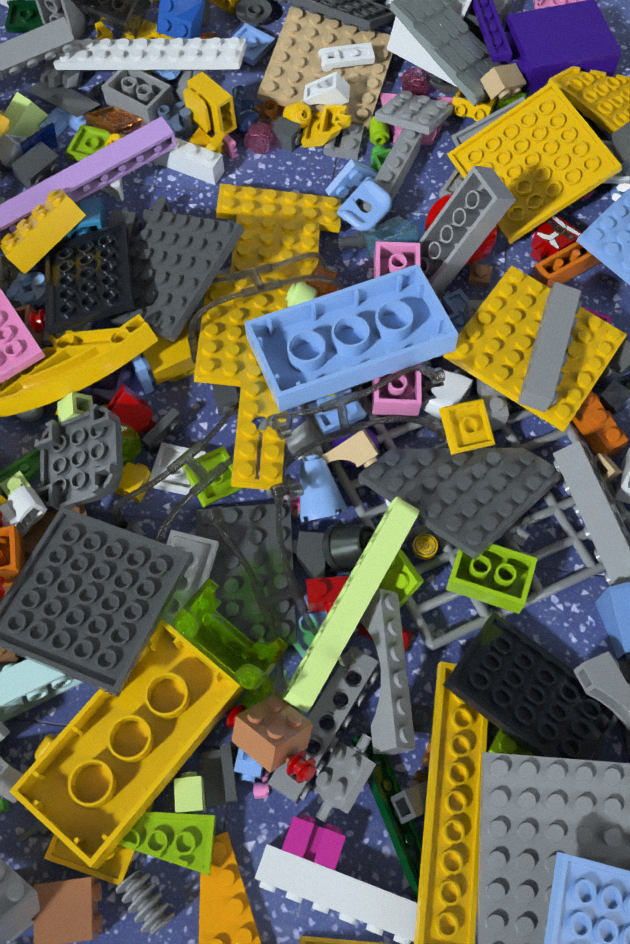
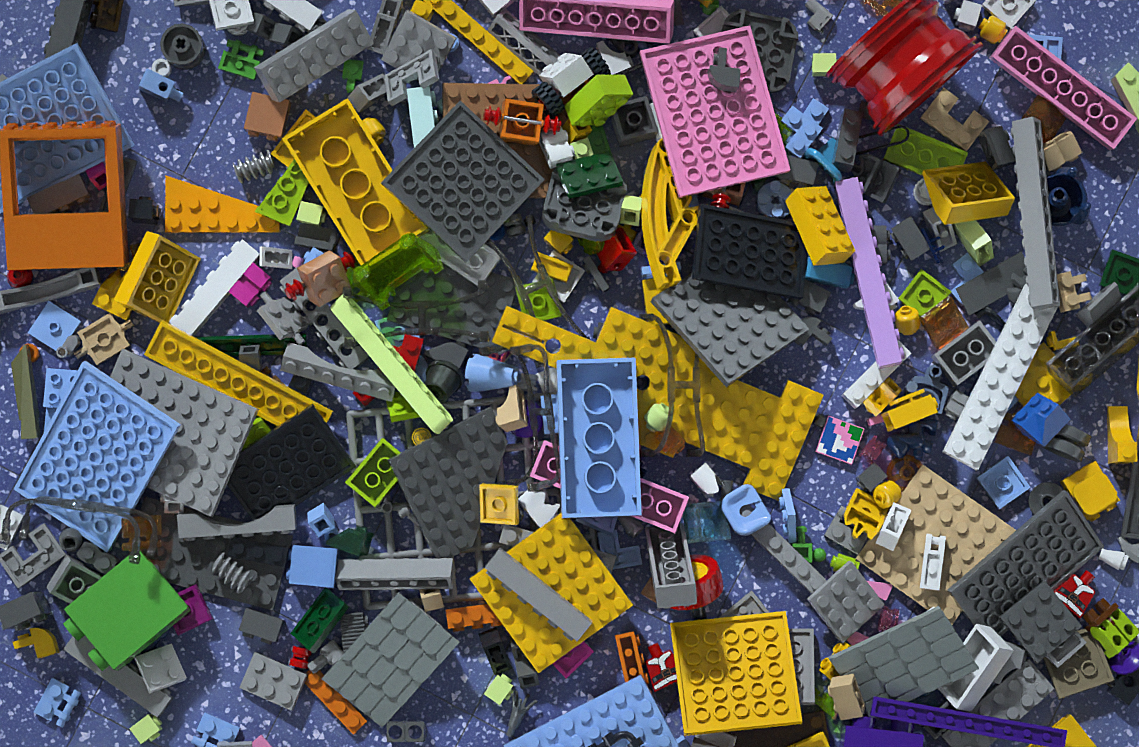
camera: 105 degrees right, 20 degrees up
(43, 463) = (589, 174): none -> dark green plate
(170, 486) = (555, 268): none -> yellow tile
(260, 170) = (839, 440): none -> tile
(265, 821) = (276, 257): none -> white slope
(351, 246) = (706, 480): none -> white piece
(577, 630) = (322, 521): none -> light blue brick
(584, 584) = (353, 540): none -> clear green slope

